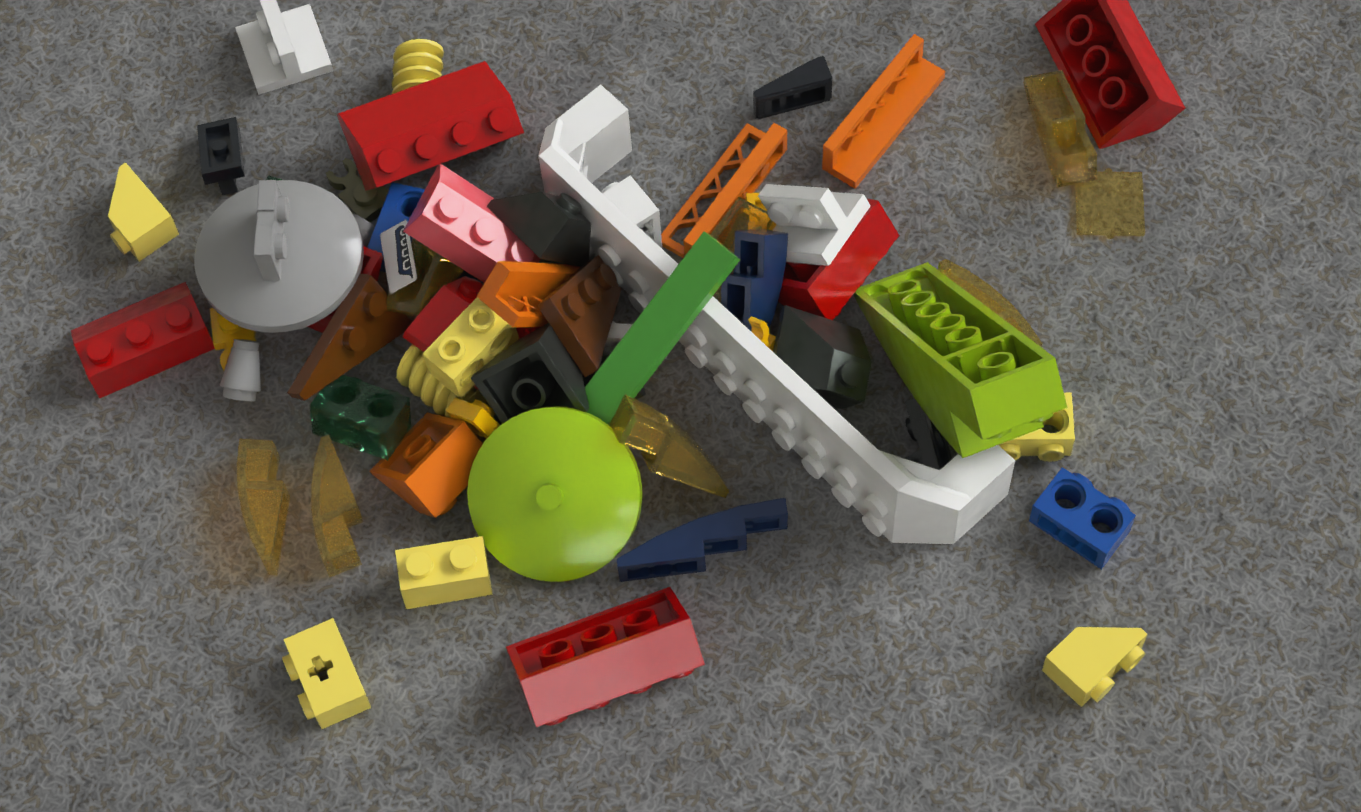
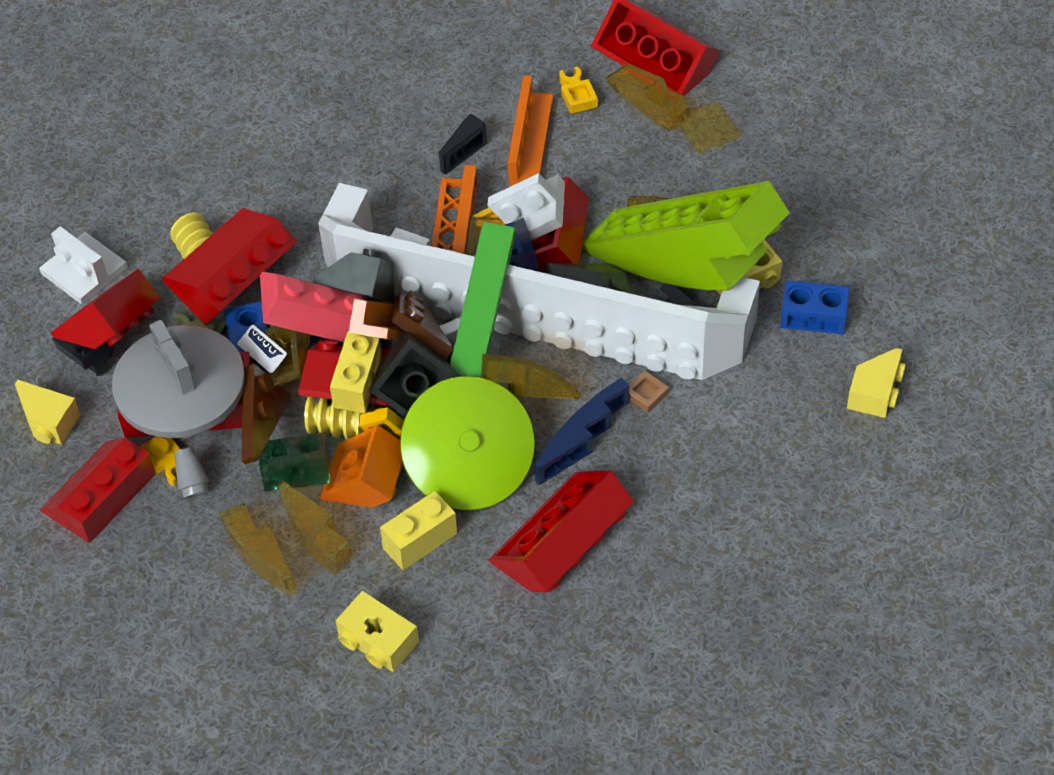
camera: 30 degrees left, 10 degrees down
(265, 128) = (110, 313): none -> red slope
(814, 525) = (647, 391): none -> medium nougat tile
(976, 82) = (577, 92): none -> yellow plate

